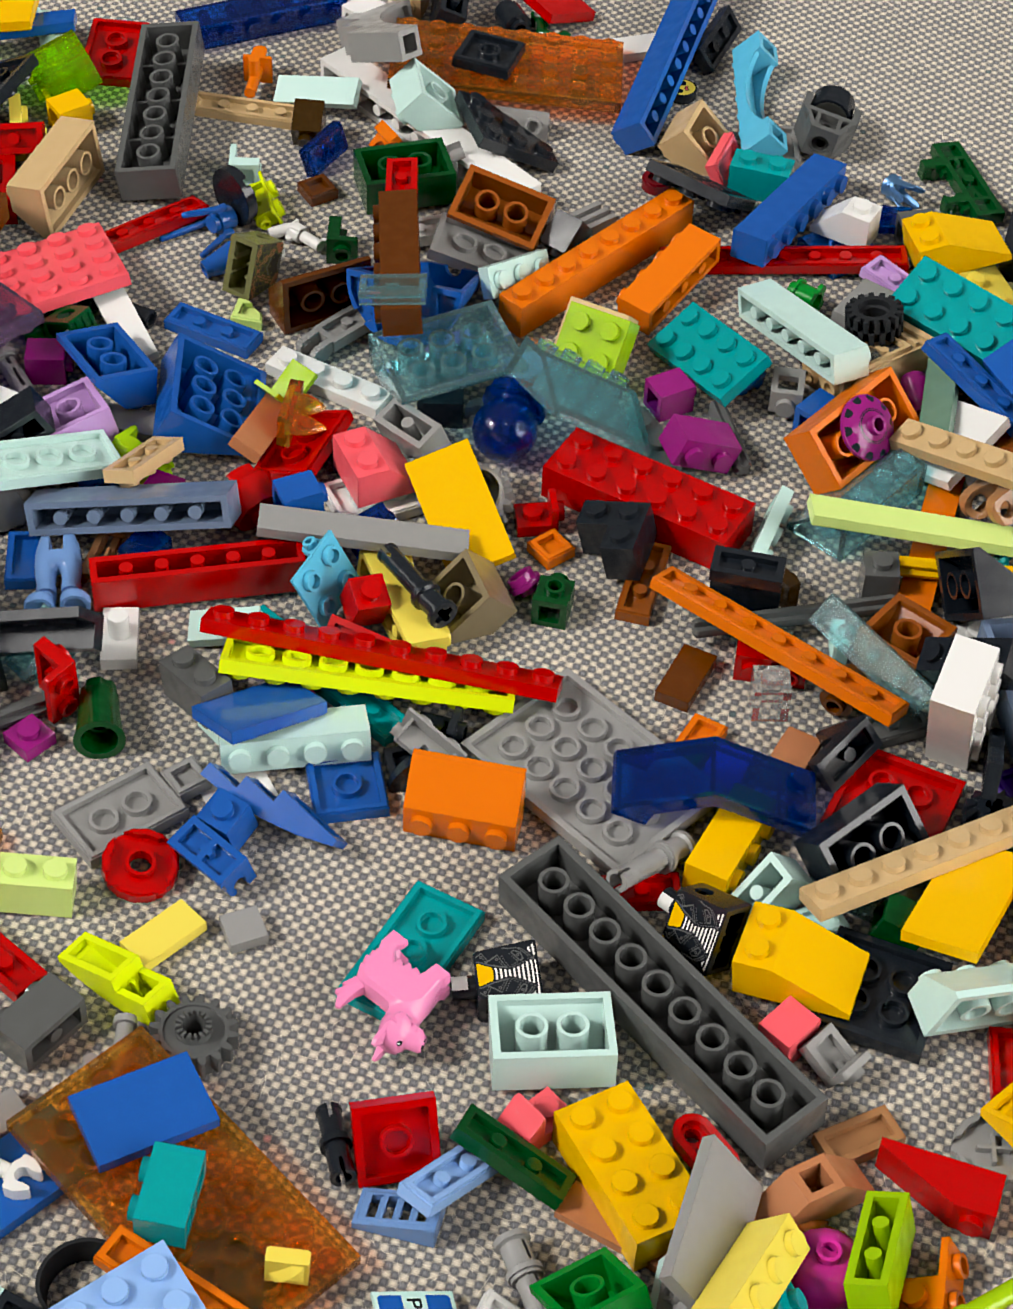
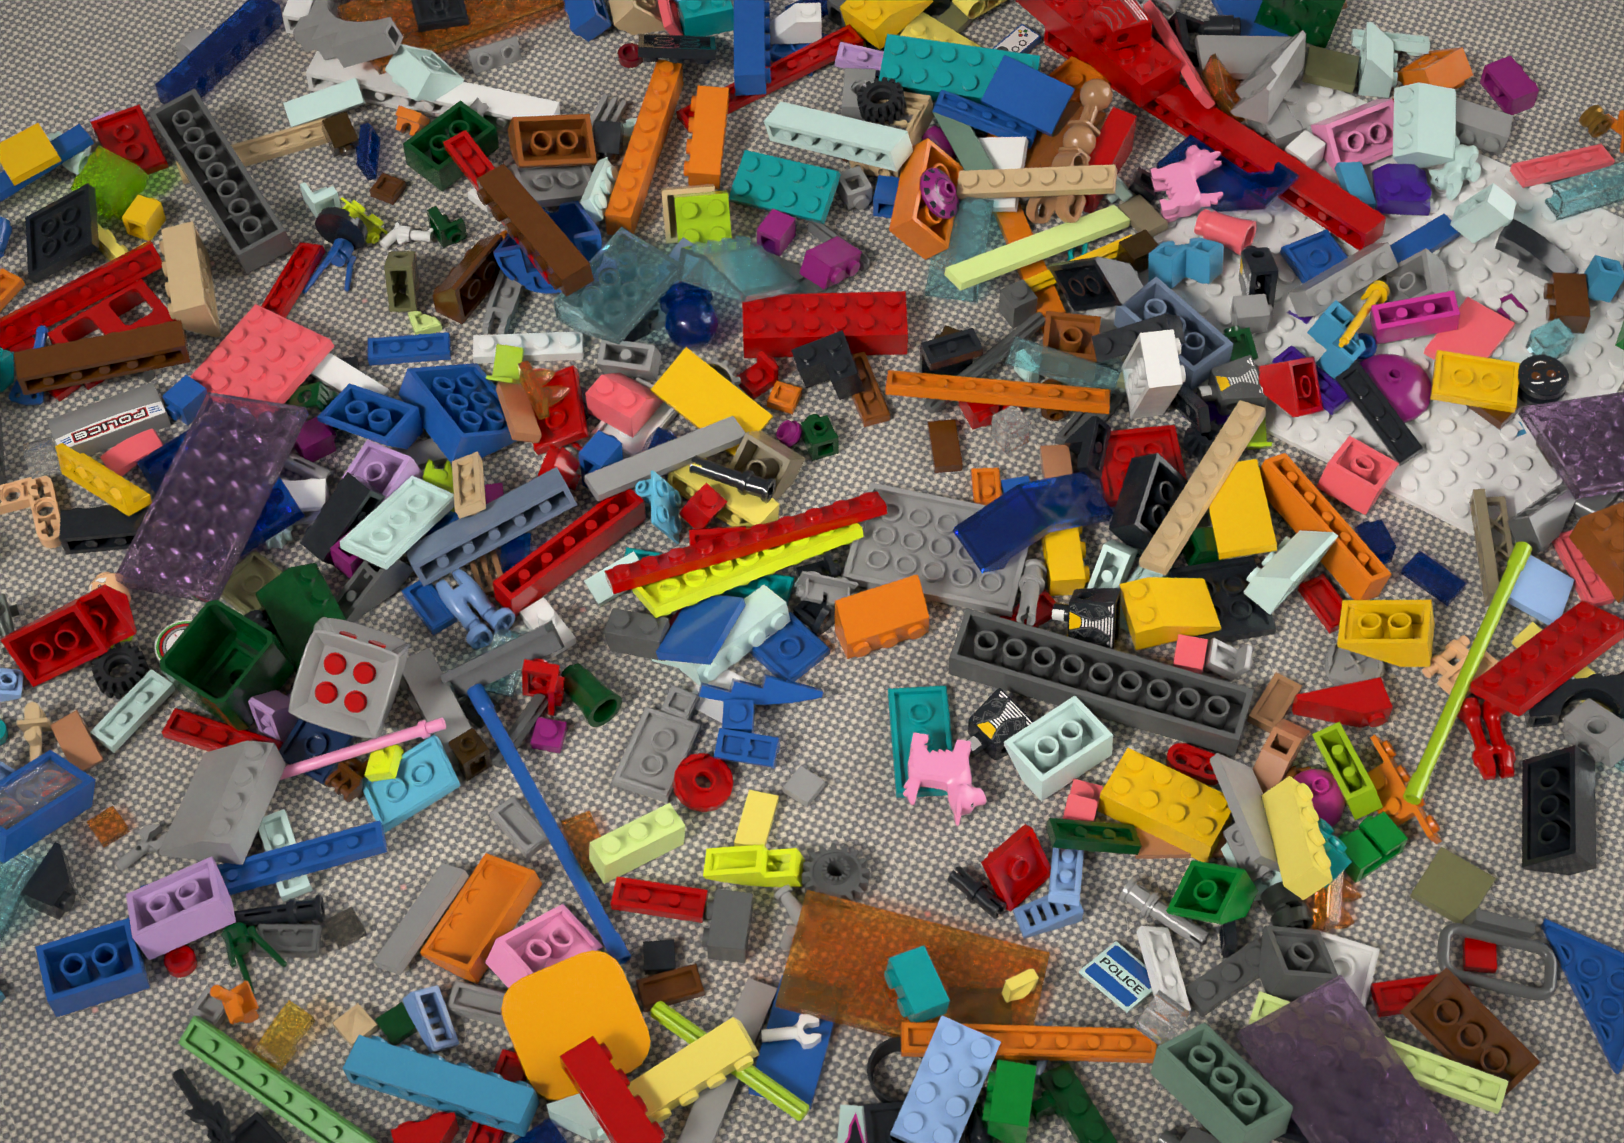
camera: 30 degrees left, 10 degrees up
(142, 1107) = (856, 943): blue tile -> none
(216, 262) = (371, 286): blue cone -> none
(257, 69) = (259, 104): orange arm -> none
(393, 289) = (561, 262): clear light blue tile -> none
(503, 134) = (495, 73): black plate -> none
(769, 529) = (920, 305): light aqua plate -> none
(808, 293) = (809, 99): green brick -> none

